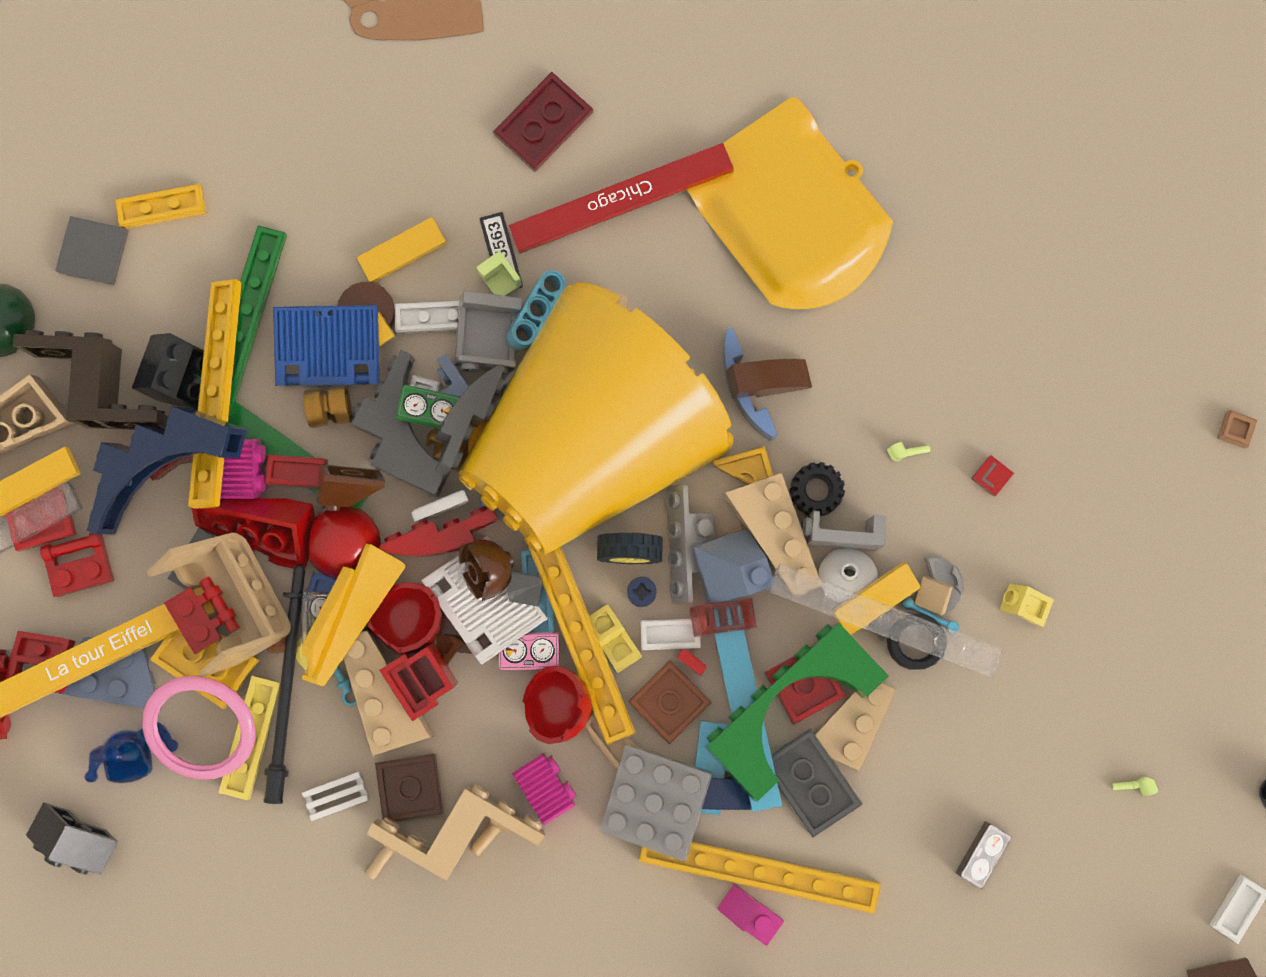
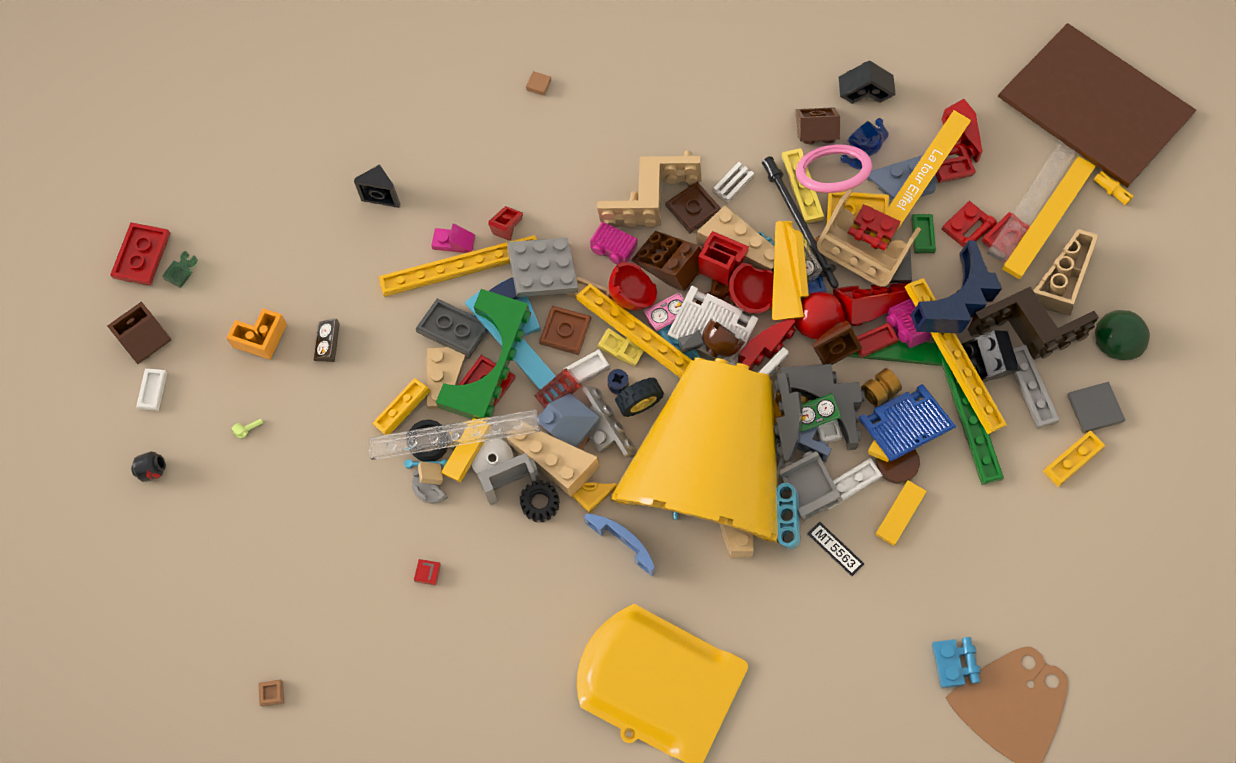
camera: 155 degrees right, 15 degrees down
(138, 587) = (926, 238): none -> green tile
(149, 308) = (1034, 389): none -> light grey plate
(172, 818) = (818, 125): none -> reddish brown slope
(456, 61) = (949, 665): none -> dark azure plate
(484, 726) = (669, 259): none -> reddish brown slope
(499, 275) = (825, 528): yellowish green panel -> none
(543, 121) = (863, 653): dark red tile -> none
(621, 198) = (776, 626): red tile -> none
(667, 901) = (504, 222): none -> red slope
(691, 662) = (564, 356): red tile -> none
(768, 377) = (608, 552): reddish brown slope -> none
(898, 452) = (497, 553): yellowish green hand -> none
(929, 705) = (401, 407): none -> yellow tile
(1026, 604) = (366, 499): light yellow bracket -> none
(1072, 899) = (260, 338): none -> light orange brick

